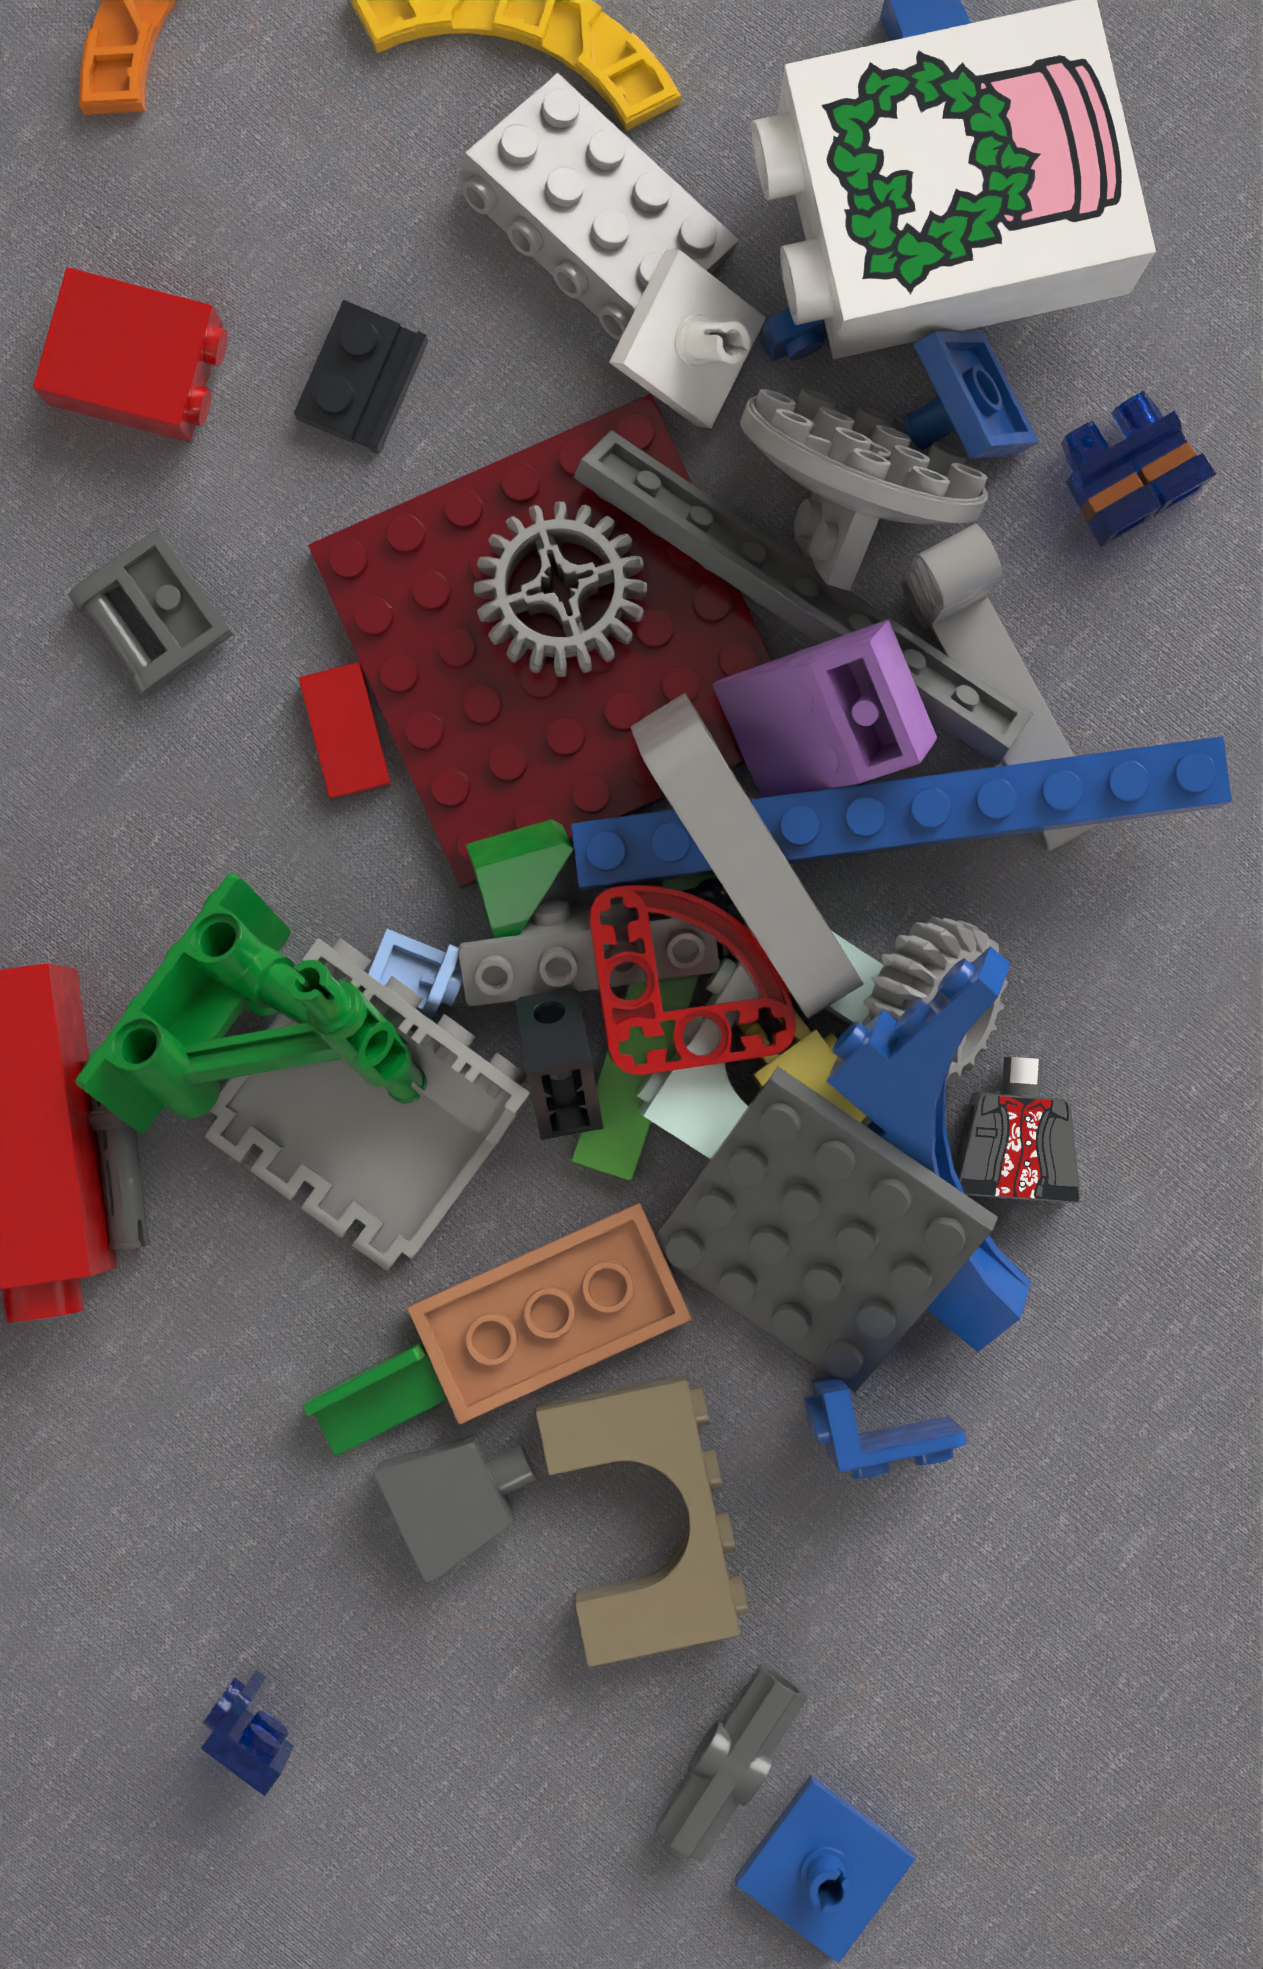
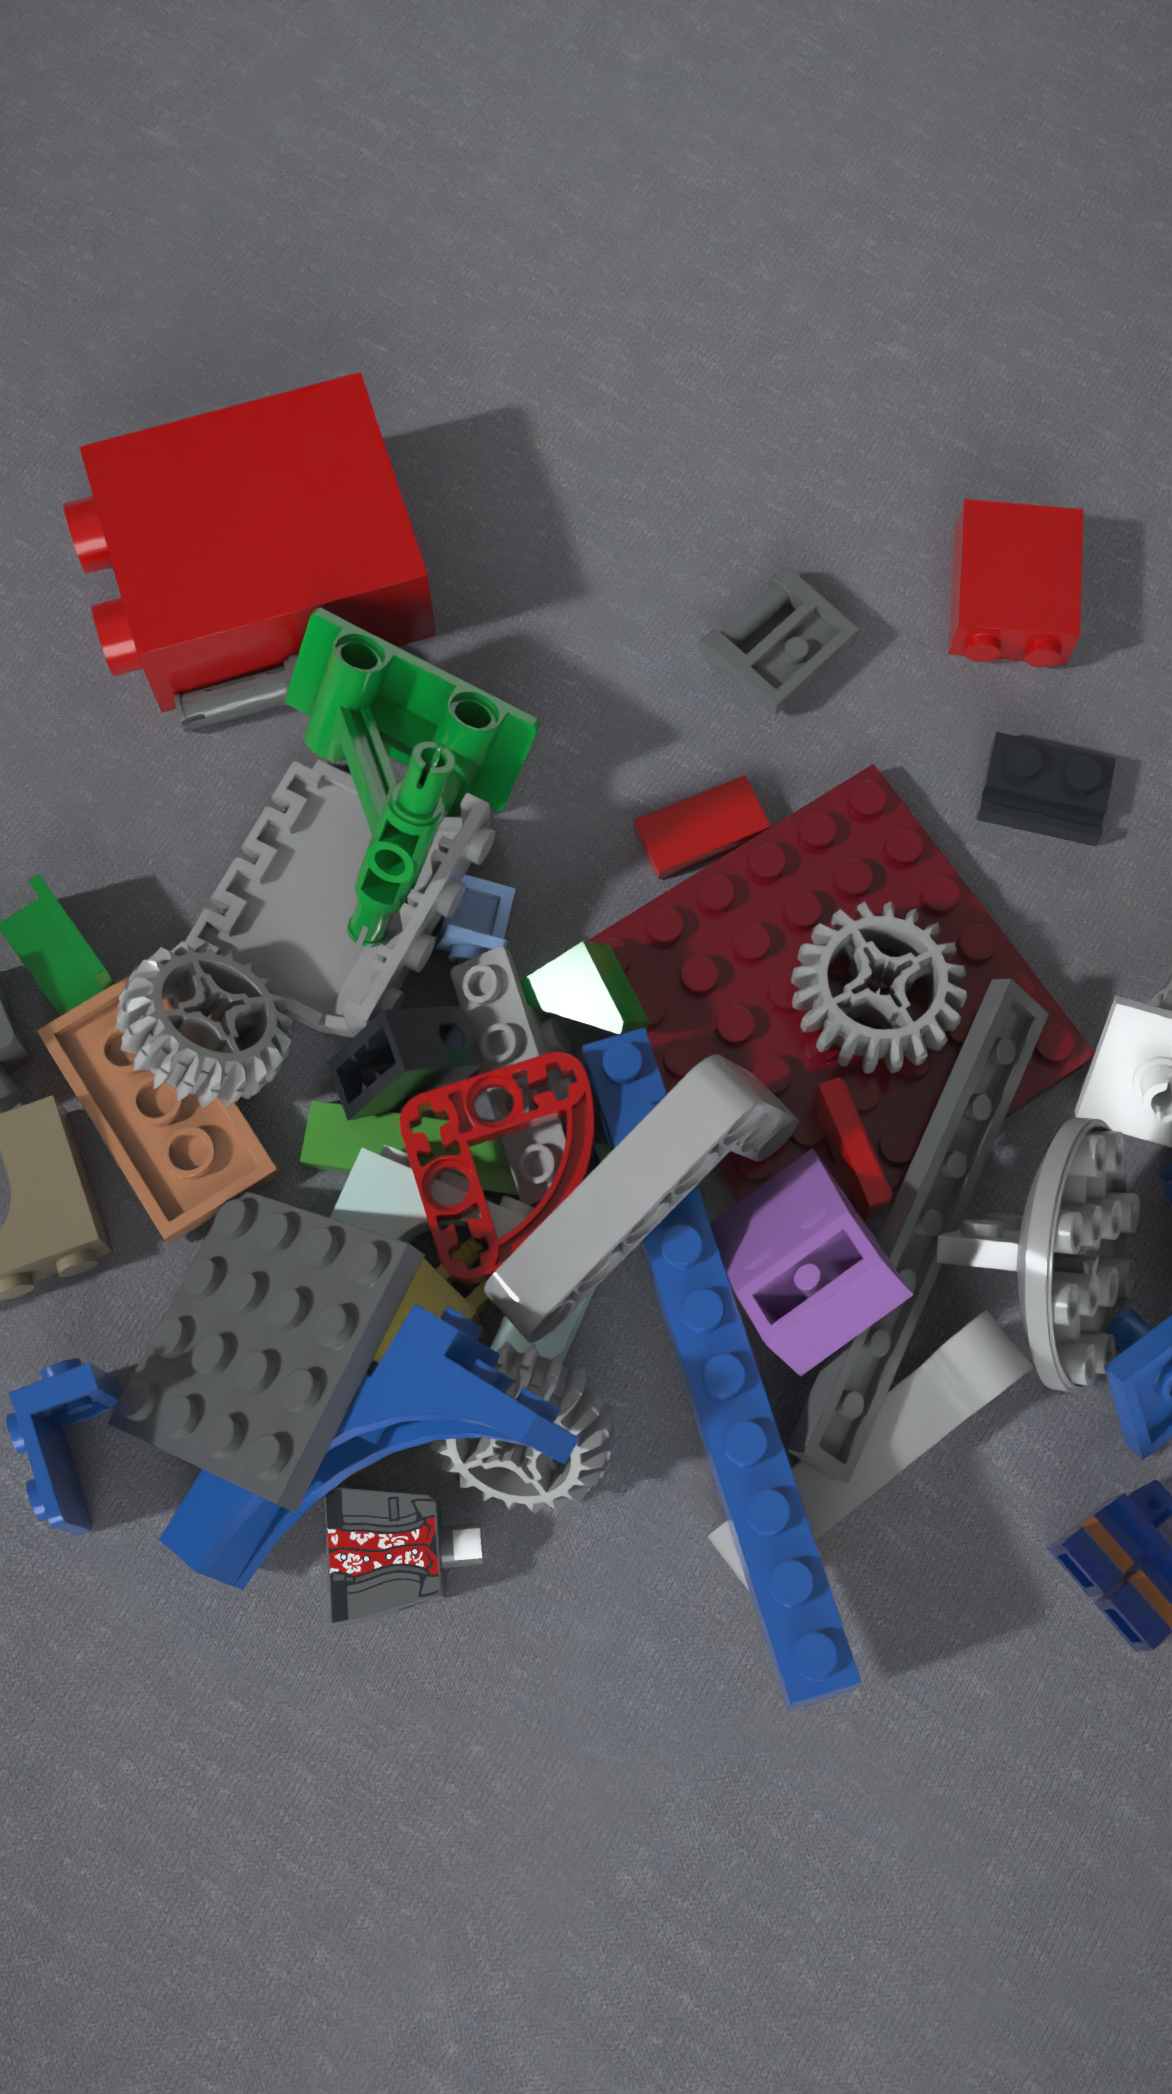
camera: 80 degrees right, 15 degrees down
(520, 1268) = (196, 1040): none -> light grey gear
(719, 647) = (851, 1148): none -> red tile

